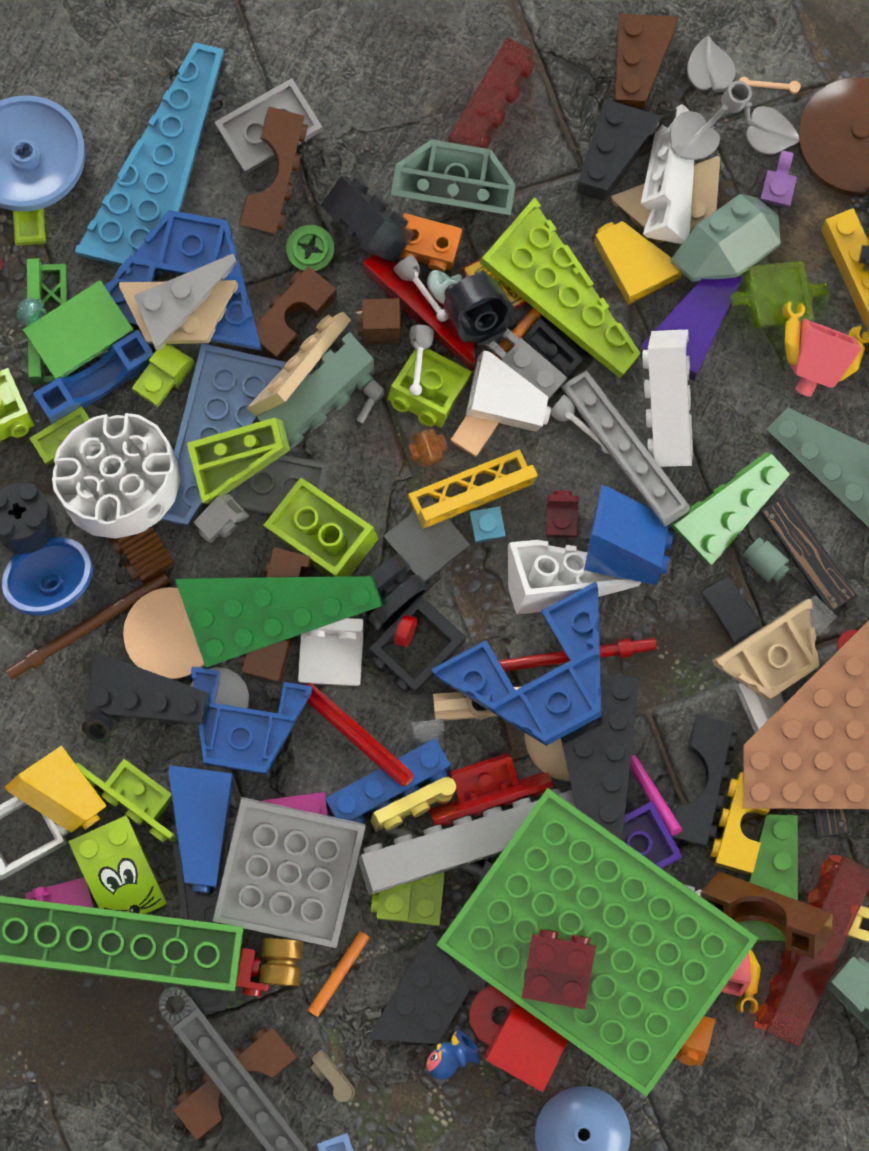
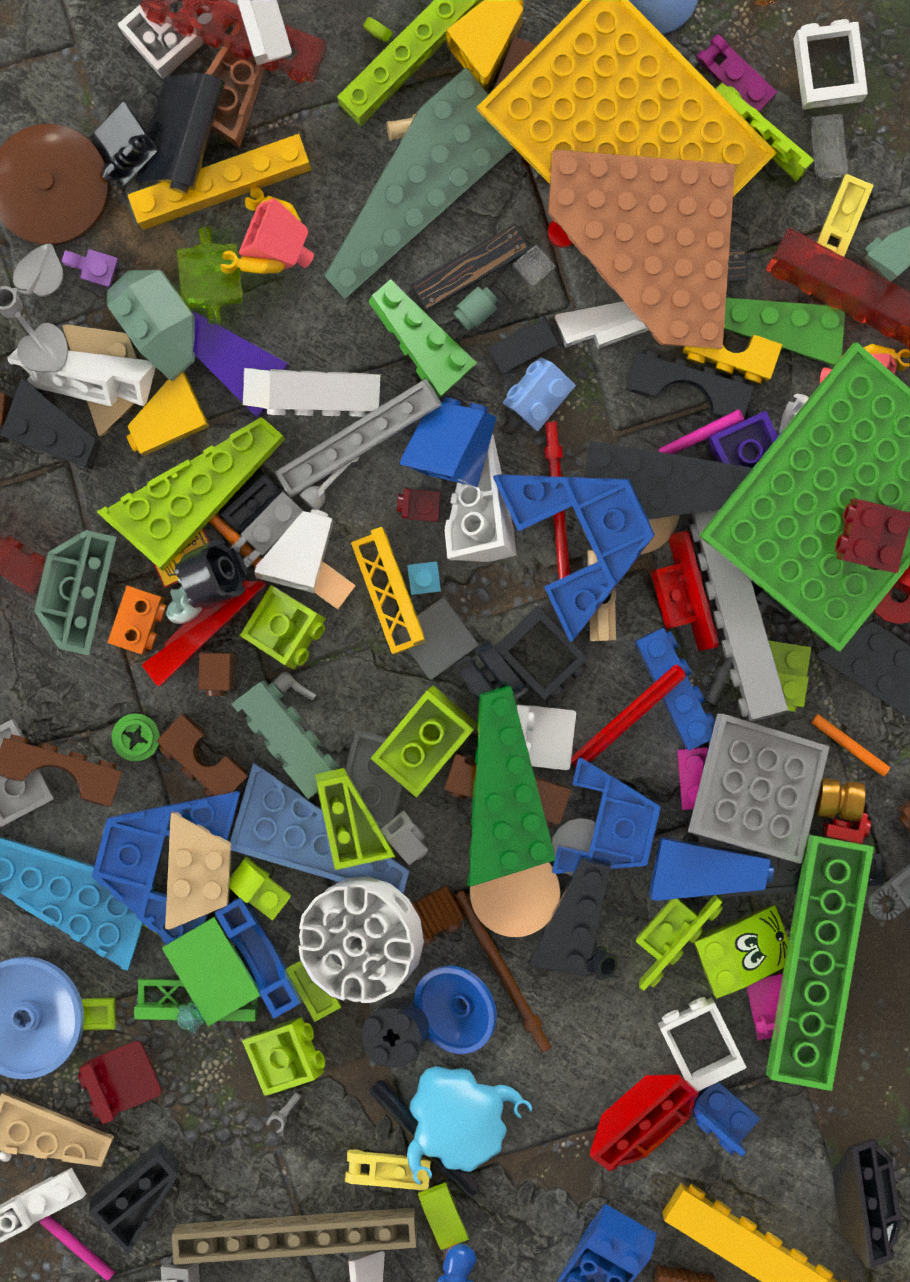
camera: 85 degrees left, 10 degrees up
(58, 791) = (667, 1006): yellow slope -> none
(171, 302) = (191, 878): light grey wing -> none
(300, 364) = (262, 756): tan wing -> none
(368, 218) = (113, 679): black wedge -> none
(405, 630) = (531, 664): red tile -> none
(409, 271) = (167, 640): hinge -> none
(414, 803) = (697, 663): light yellow plate -> none
(420, 339) = (237, 633): hinge -> none
(428, 447) = (345, 631): clear orange gear -> none
(428, 730) = (624, 647): clear plate -> none
(684, 629) = (539, 393): none -> light blue bracket
(774, 654) = (572, 306): tan wing -> none
(803, 925) = (808, 362): reddish brown arch -> none

